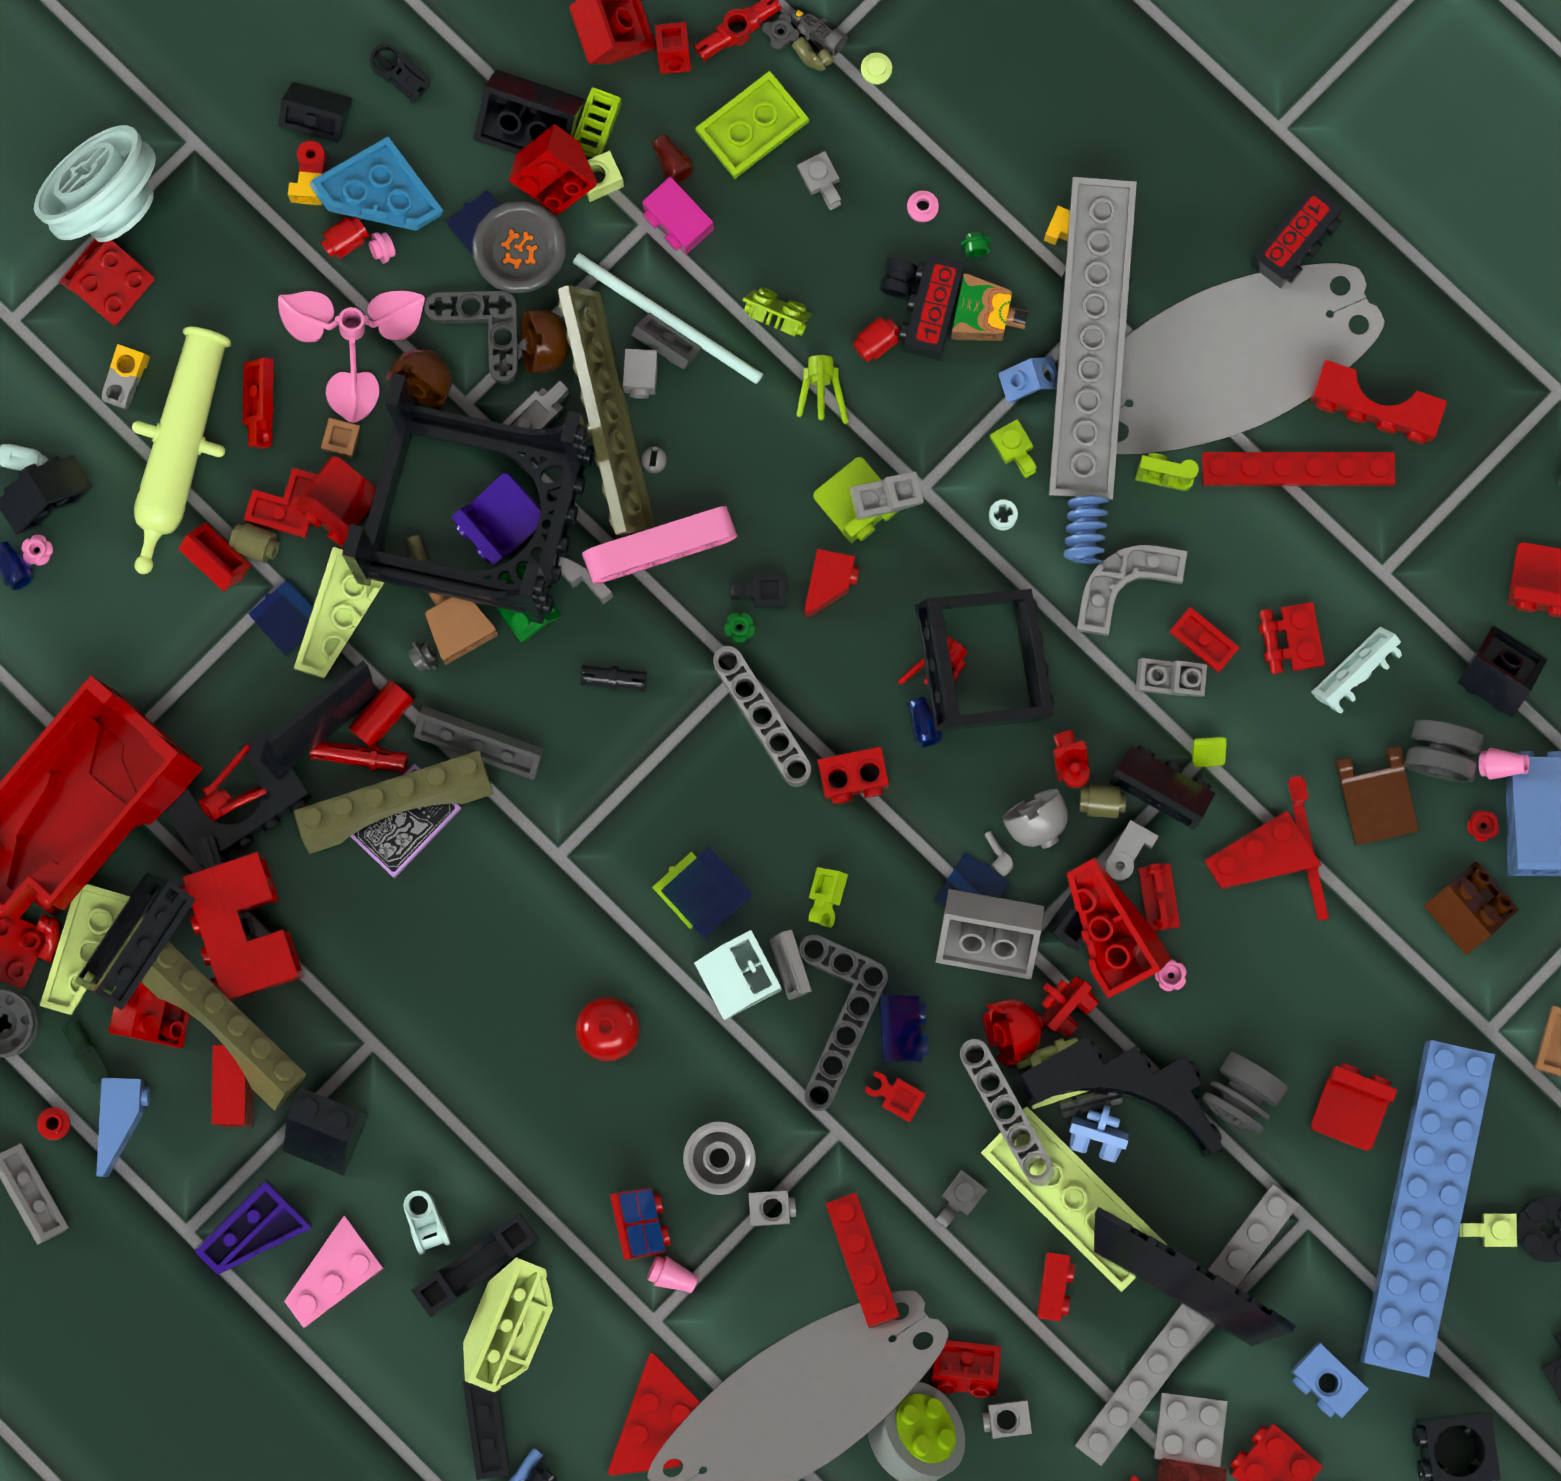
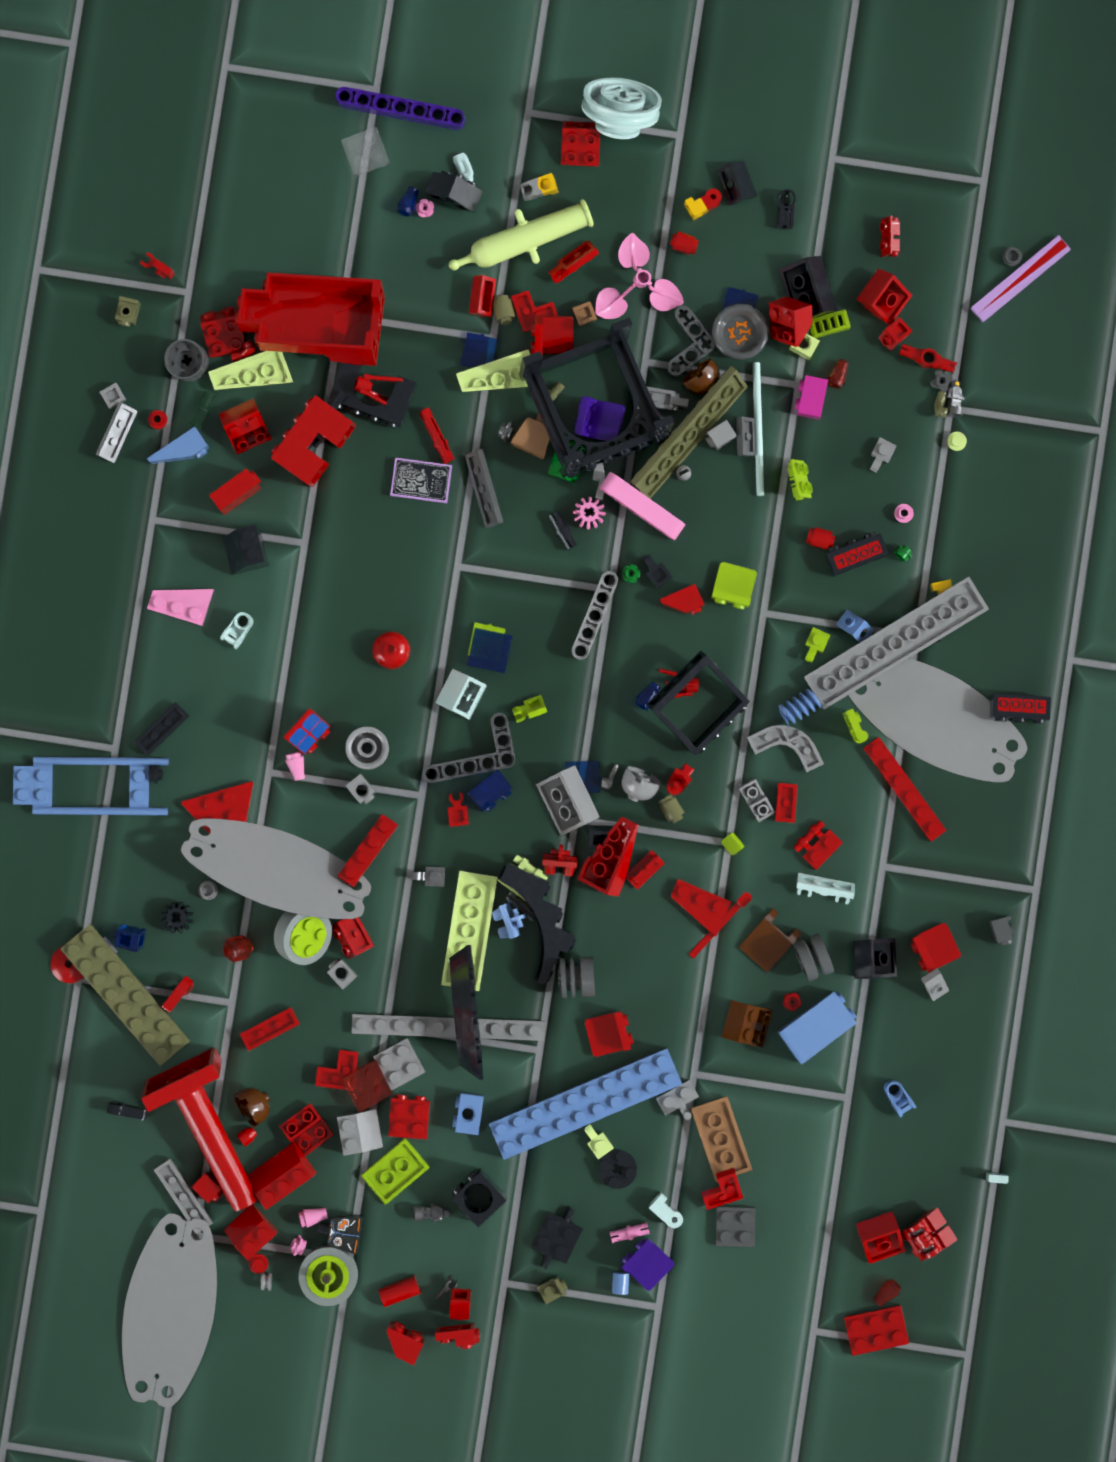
camera: 55 degrees right, 5 degrees up
(135, 940) = (268, 395): black window -> none
(251, 1228) = (176, 550): dark purple wedge -> none
(260, 1059) = (264, 433): olive arch -> none
(318, 720) = (437, 404): black slope -> none
(338, 818) = (399, 448): olive arch -> none
(378, 188) = (720, 242): dark azure plate -> none
(381, 247) = (692, 264): bright pink plate -> none
(381, 714) = (464, 431): red brick -> none
(426, 375) = (643, 331): reddish brown cylinder -> none
(475, 1265) = (233, 668): black arch -> none
(507, 1325) = (216, 704): yellowish green wedge -> none
(627, 627) = (591, 519): none -> bright pink gear
(752, 125) = (884, 400): lime plate -> none
(790, 965) = (484, 715): light grey tile -> none
(821, 372) = (784, 522): lime plant -> none
(851, 766) = (601, 676): red brick -> none
(886, 496) = (743, 598): light grey slope -> none
(898, 278) = (860, 526): black wheel -> none
(984, 311) = (872, 581): torso -> none
(998, 1099) = (486, 878): light grey beam -> none
(1011, 519) = (777, 655): light aqua bush -> none
(1013, 1029) = (530, 844): red cylinder -> none
(1052, 1294) = (413, 955): red piece -> none
(1121, 860) = (650, 838): light grey leg -> none
(1163, 786) = (699, 833): black slope -> none
(1177, 982) = (610, 907): bright pink plate -> none
(1339, 391) = (971, 829): red arch -> none
(1501, 763) = (826, 988): bright pink cone -> none
(1509, 1077) = (678, 1098): none -> light grey plate

